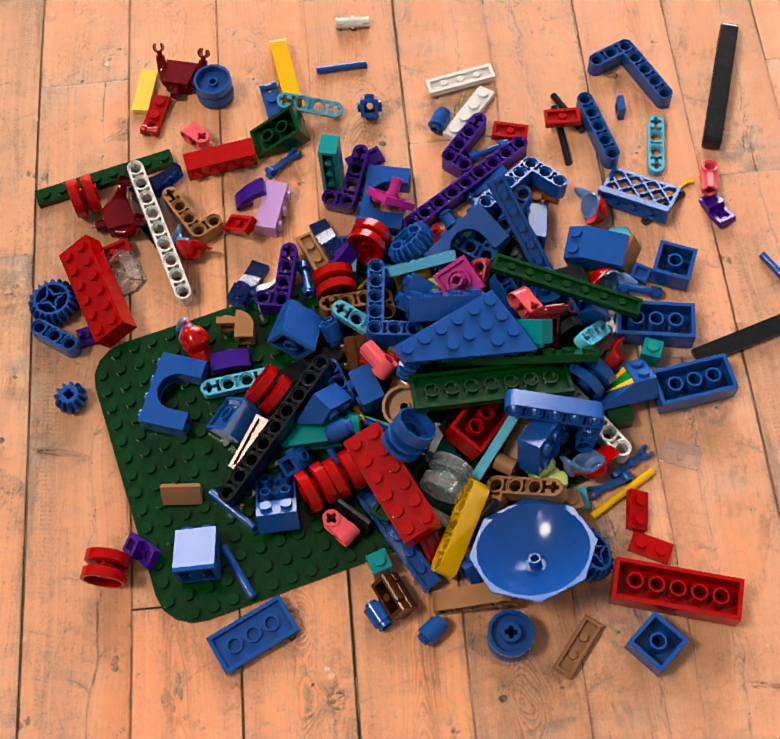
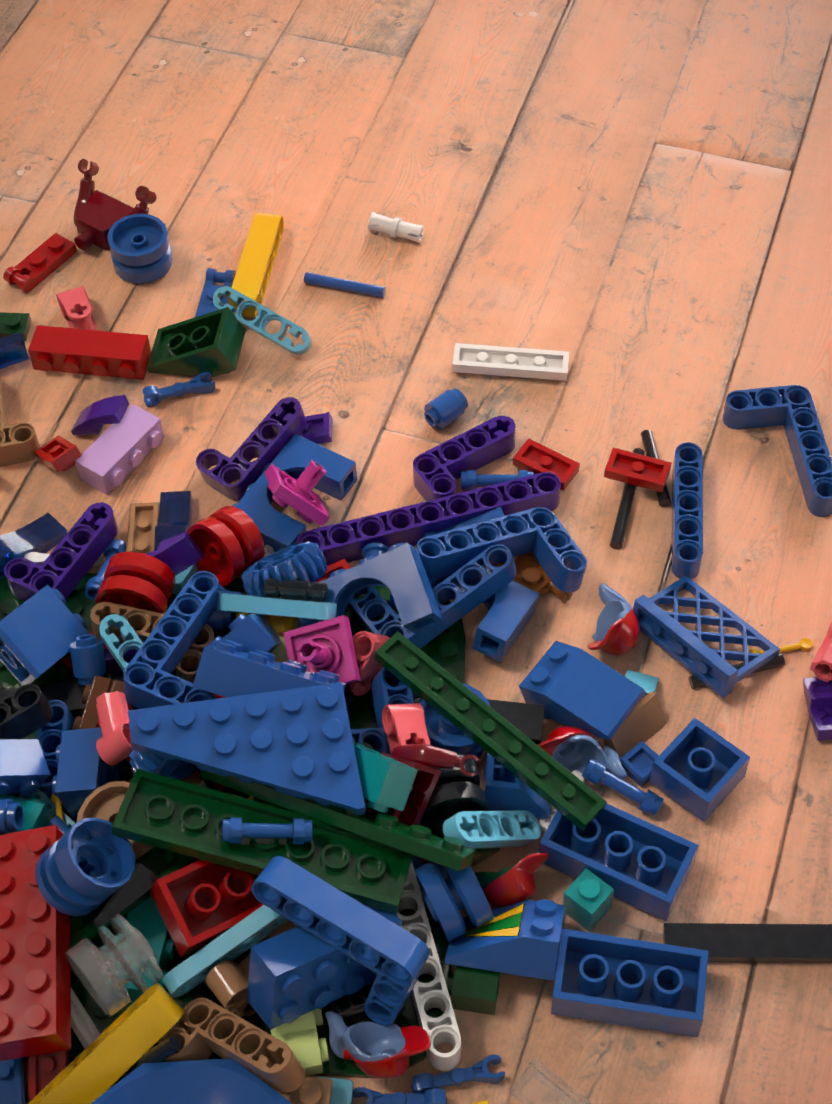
camera: 20 degrees right, 10 degrees down
(145, 91) = (45, 224): light yellow tile -> none
(331, 162) = (228, 404): teal brick -> none
(369, 114) = (339, 352): blue brick -> none
(427, 250) = (296, 589): none -> black axle
(475, 104) = (516, 405): white plate -> none
(478, 385) = (299, 831): none -> blue bar
(518, 222) = (466, 603): blue tile -> none
(620, 107) = (743, 488): blue tile -> none
(655, 145) = (772, 567): medium azure beam -> none

